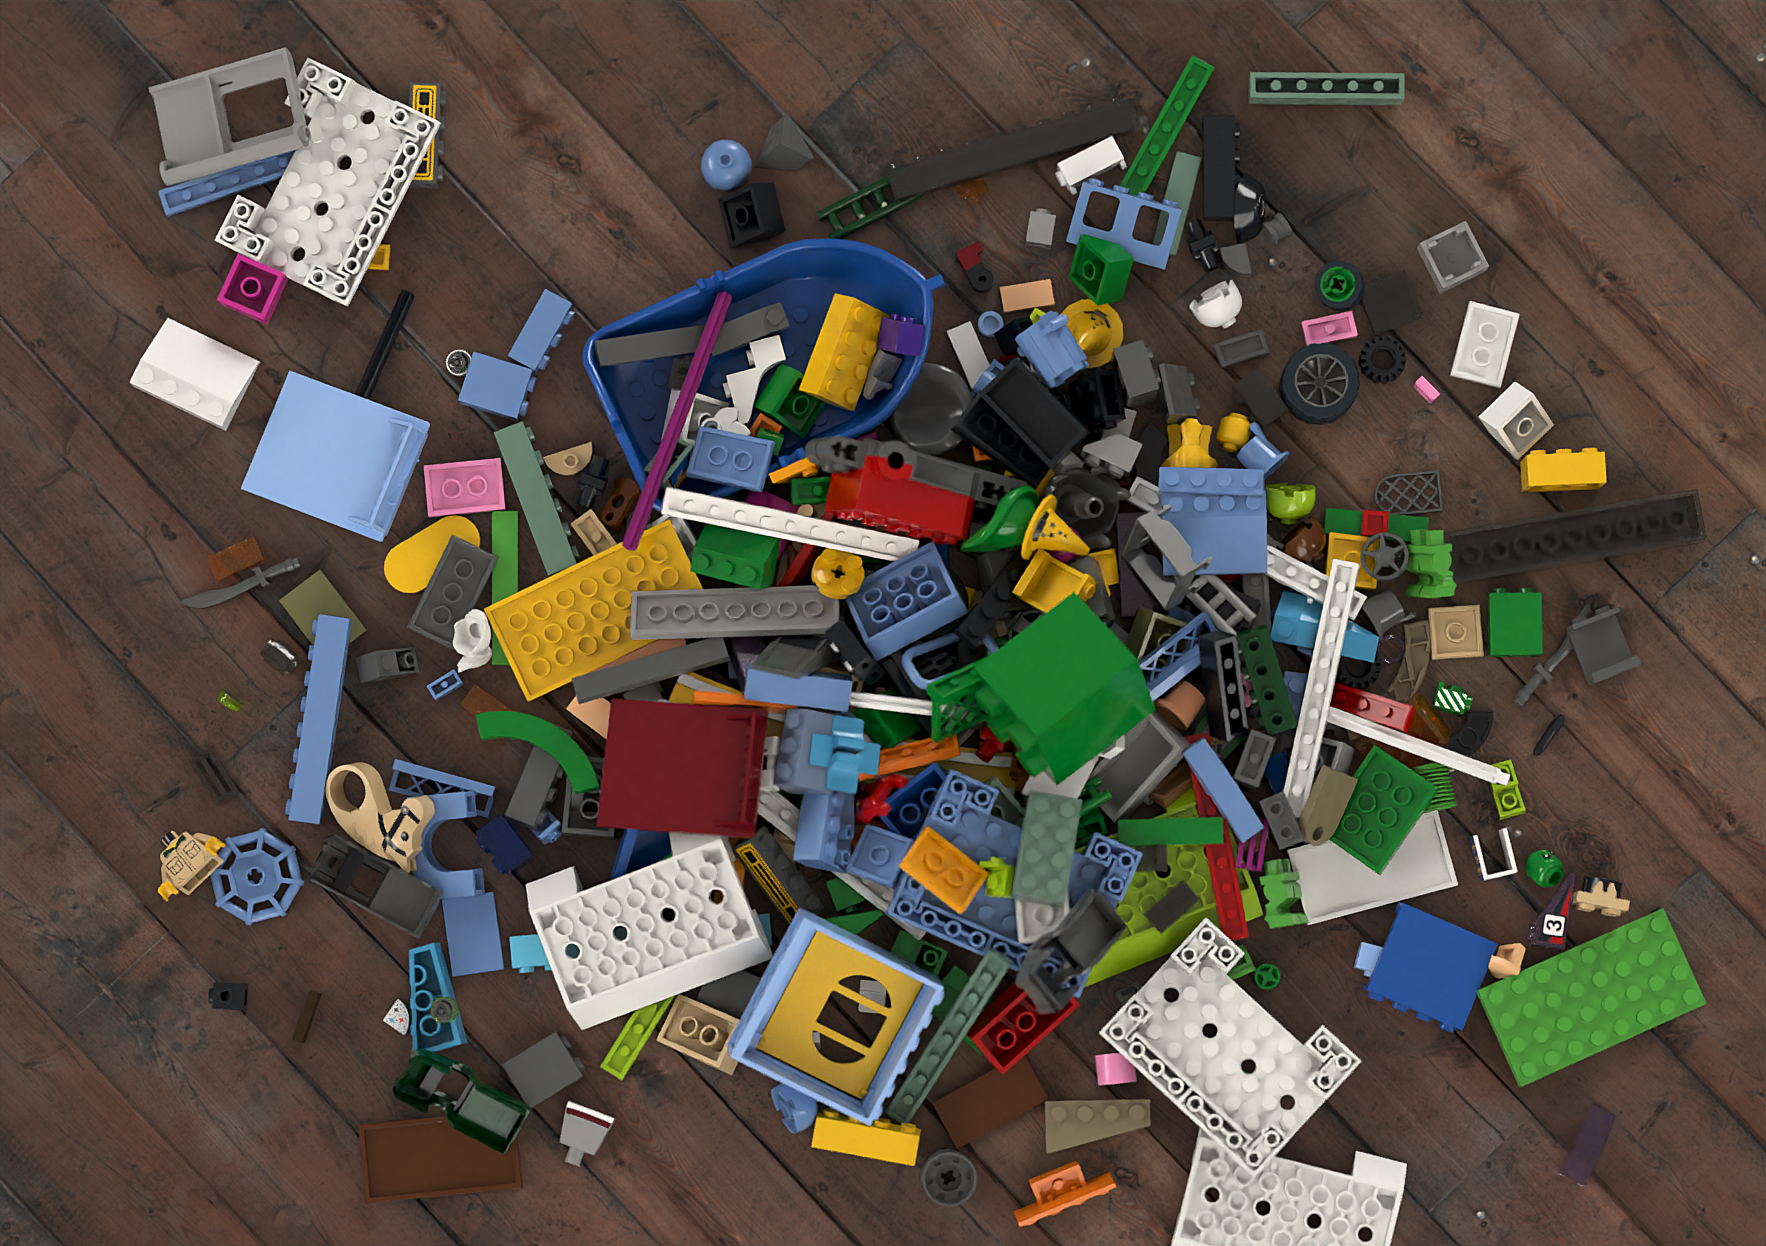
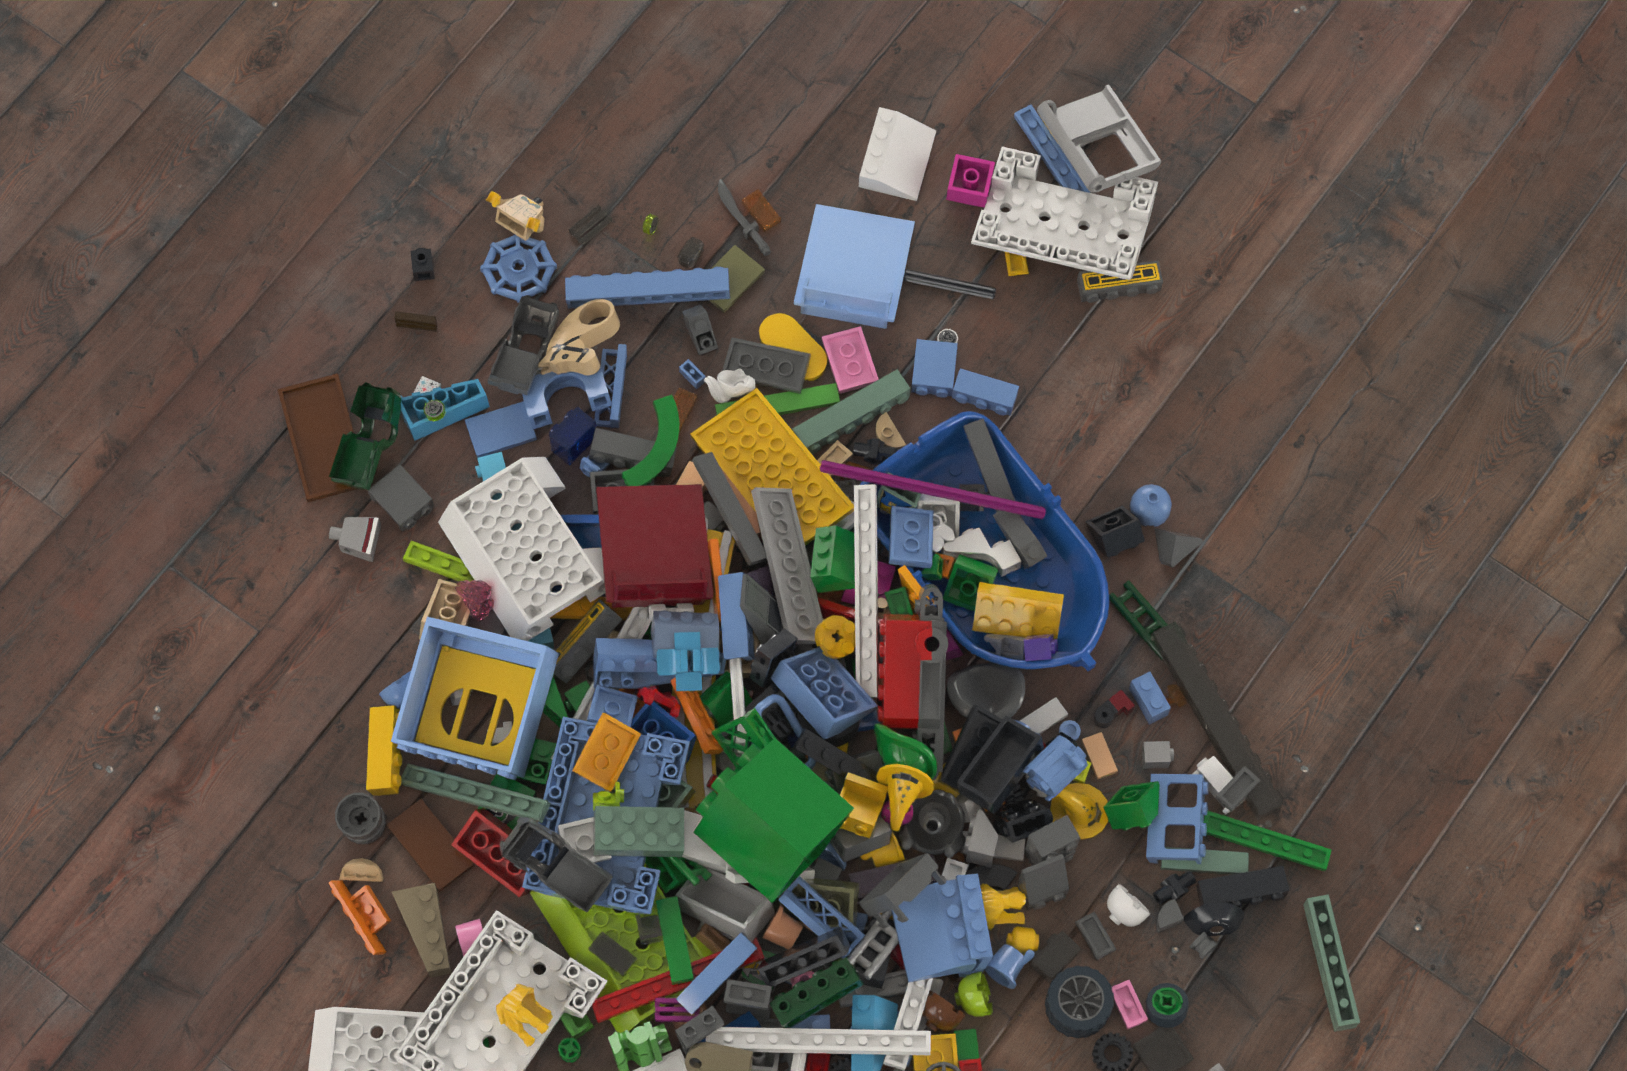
camera: 75 degrees right, 15 degrees down
(697, 997) = (476, 597): none -> clear pink rock
(970, 221) = (1149, 698): none -> medium blue brick
(1008, 1186) = (361, 870): none -> tan plate
(1104, 145) = (1238, 788): none -> dark grey tile
(1228, 1033) = (520, 1008): none -> yellow piece

